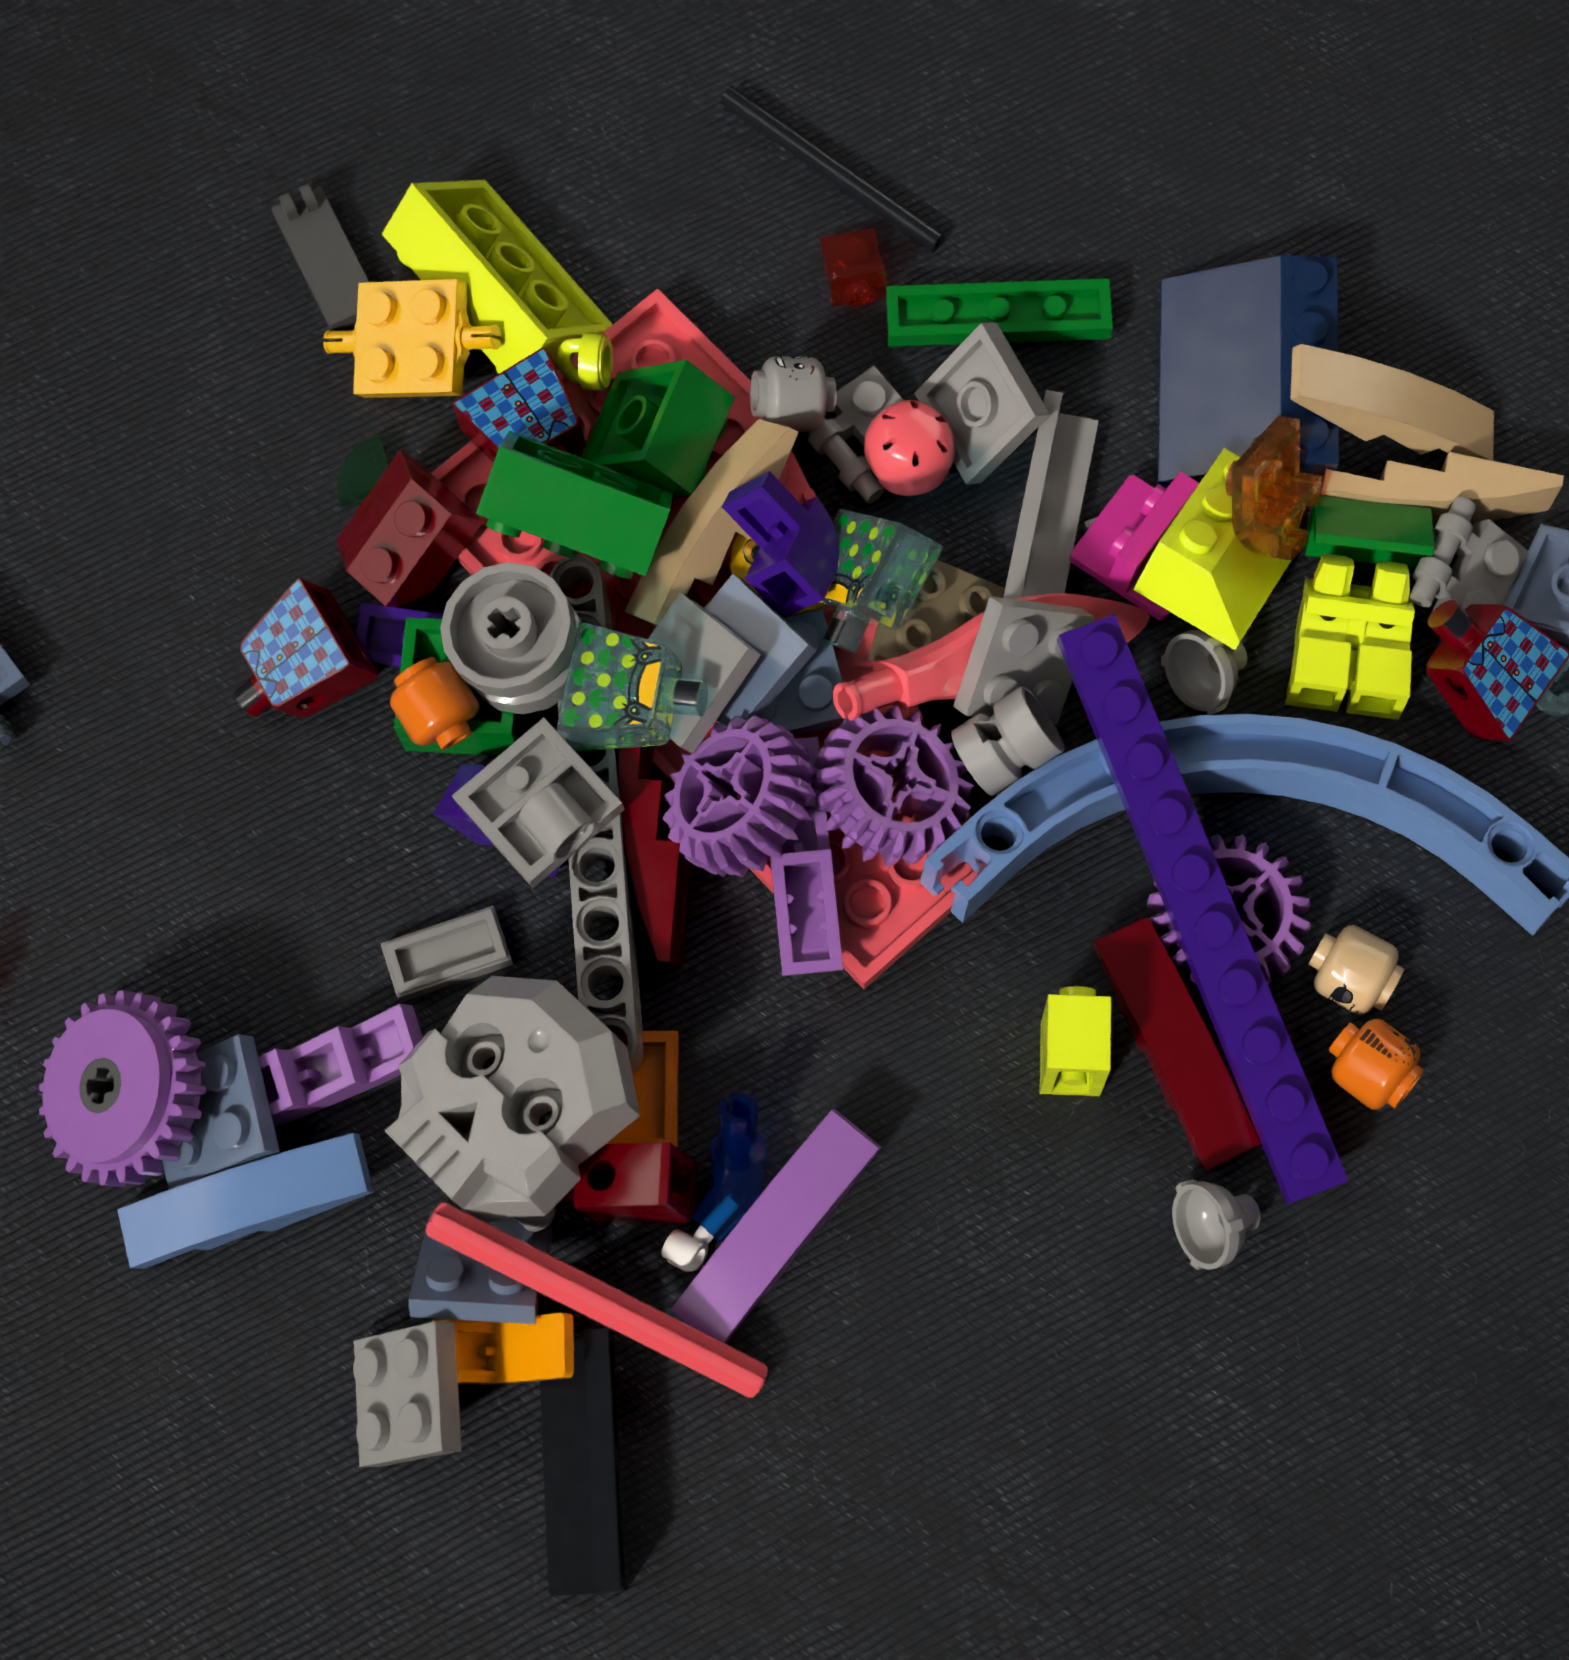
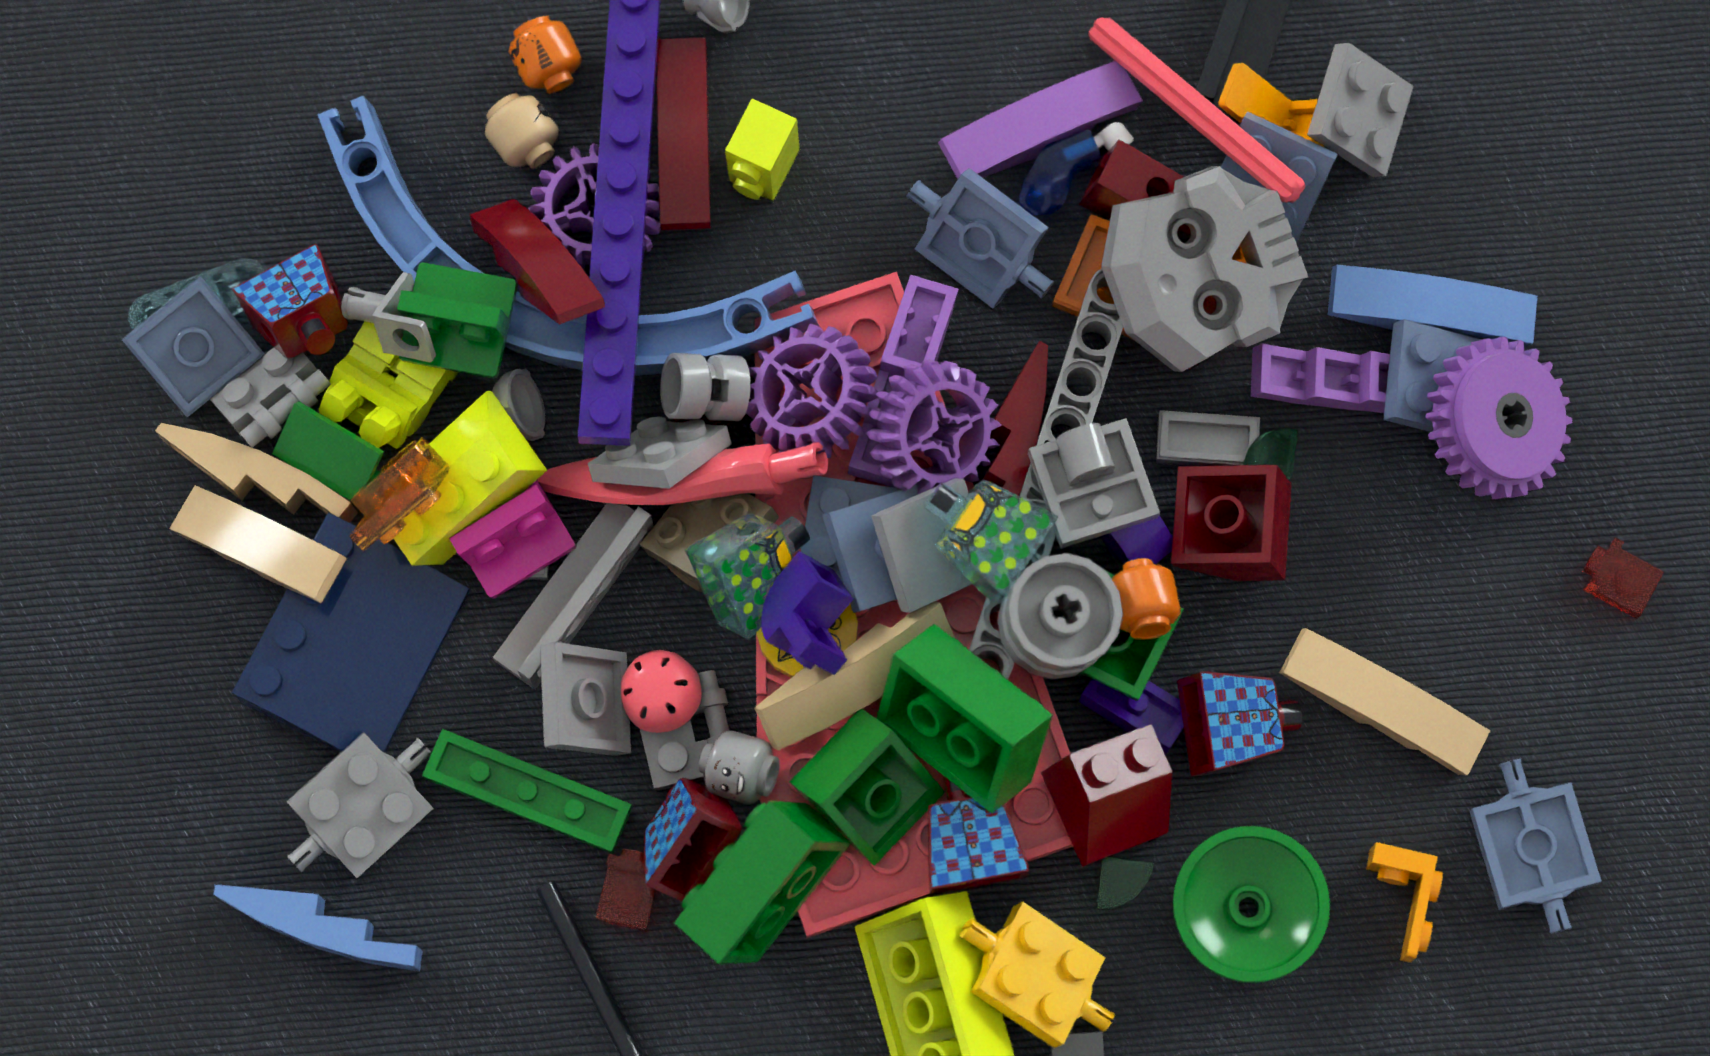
camera: 160 degrees left, 5 degrees up
(79, 596) = (1397, 867): none -> light orange bracket
(153, 745) = (1384, 701): none -> tan slope
(200, 462) = (1273, 874): none -> green dish
(368, 963) = (1274, 448): none -> clear green tile
(381, 859) = (1232, 521): none -> dark red slope
(594, 361) = (895, 876): neon yellow tile -> none
(720, 281) = (761, 881): none -> green brick
(784, 1054) = (981, 238): none -> sand blue plate
(813, 308) = (687, 838): none -> dark red torso
(1153, 108) = (303, 919): none -> medium blue slope
(1156, 233) = (359, 805): none -> light grey plate
(1258, 800) = (538, 260): none -> dark red slope
(1313, 705) = (464, 316): none -> green bracket
(1386, 679) = (388, 321): none -> light grey bracket

